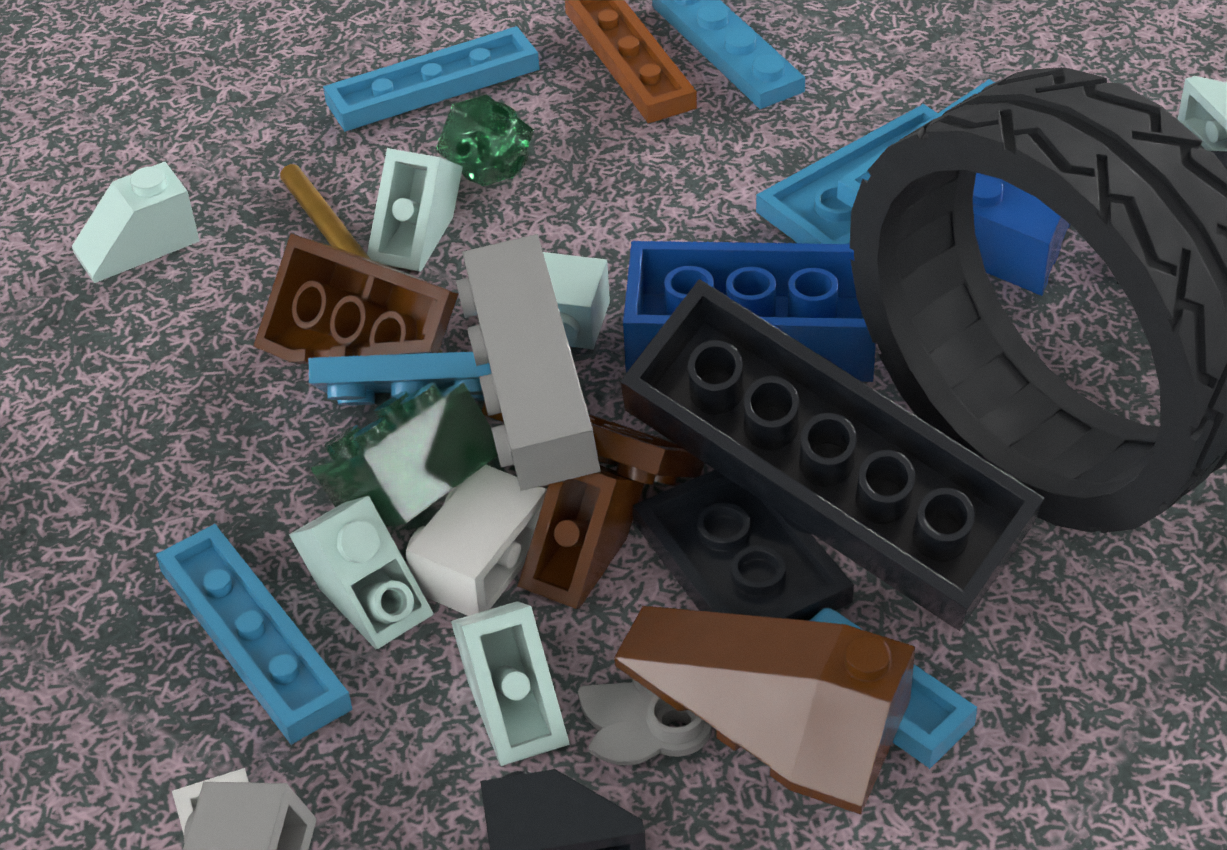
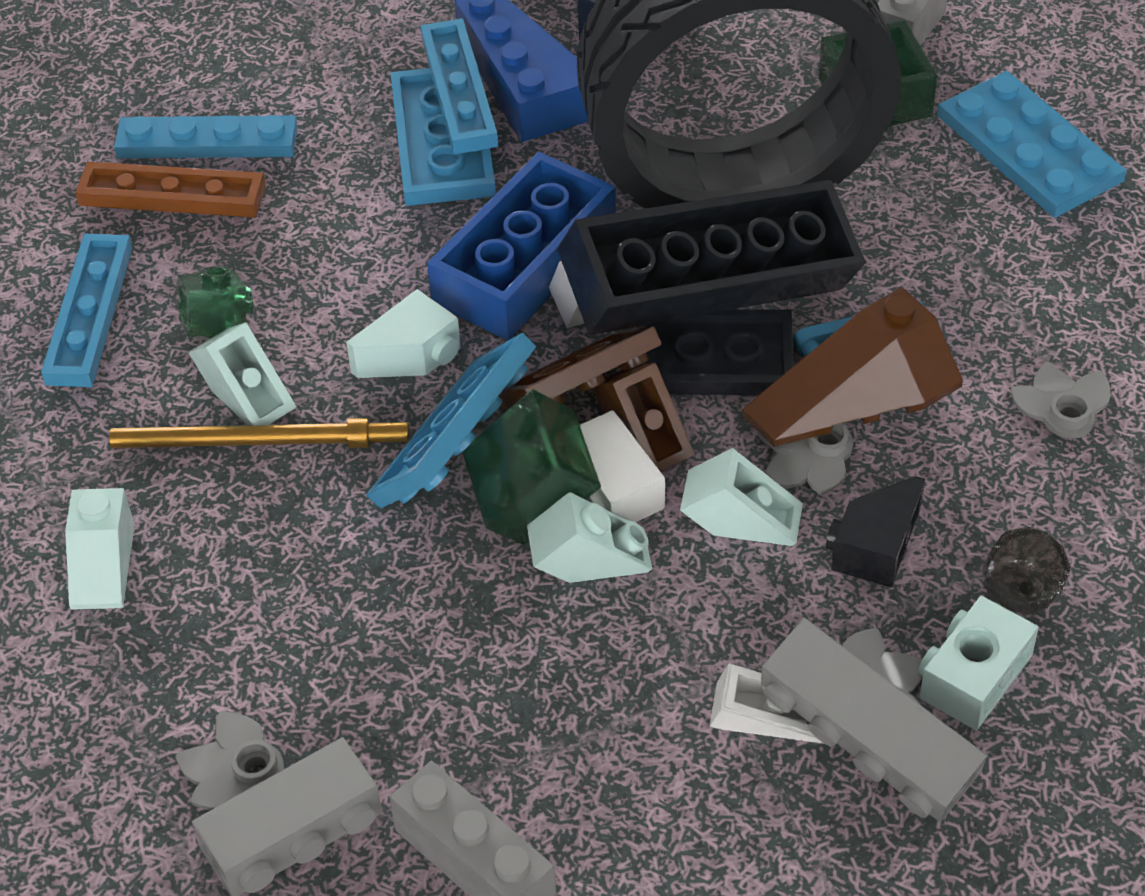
camera: 60 degrees left, 5 degrees up
(254, 634) = (594, 625): dark azure plate -> none
(349, 306) = (343, 446): reddish brown wedge -> none
(530, 363) = (539, 346): light grey brick -> none

